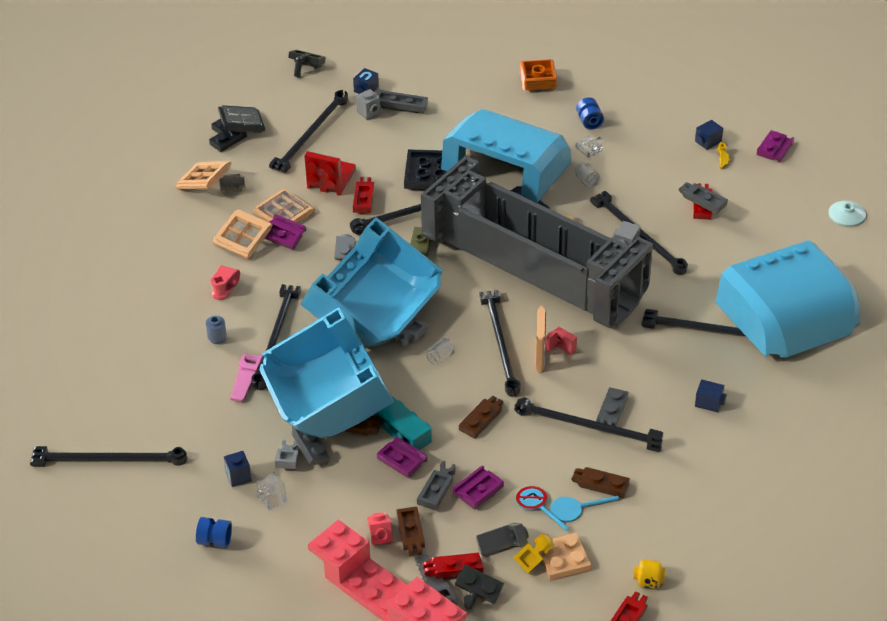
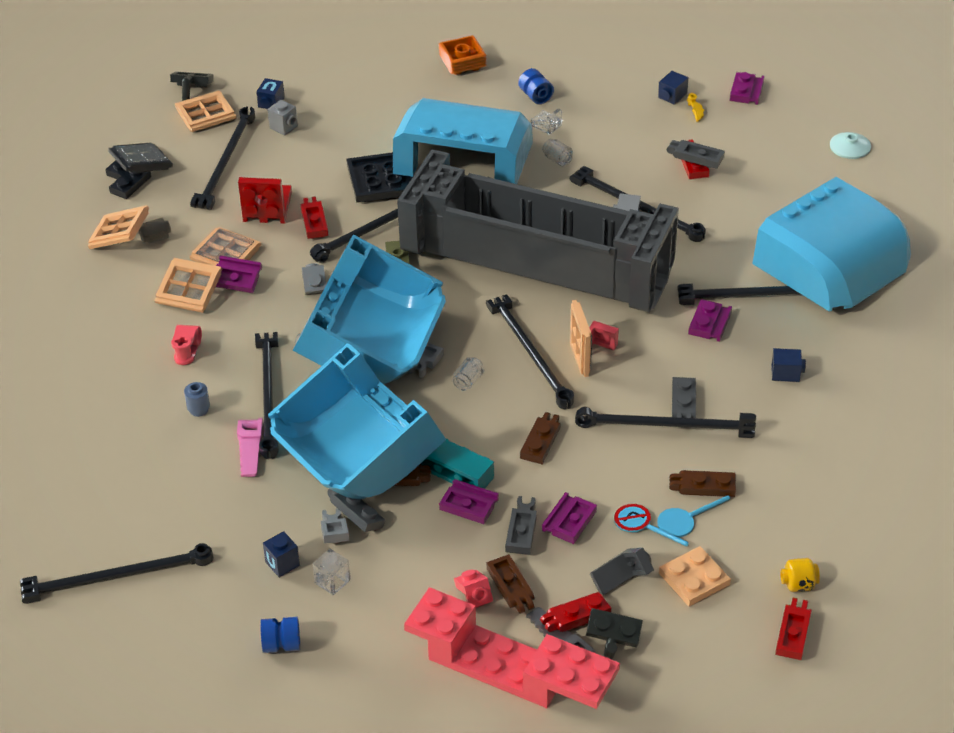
camera: 15 degrees left, 0 degrees up
(308, 87) = (205, 111): none -> light nougat piece
(402, 101) = (320, 108): dark grey plate -> none
(529, 556) = (659, 583): yellow plate -> none
(661, 344) = (709, 320): none -> magenta plate

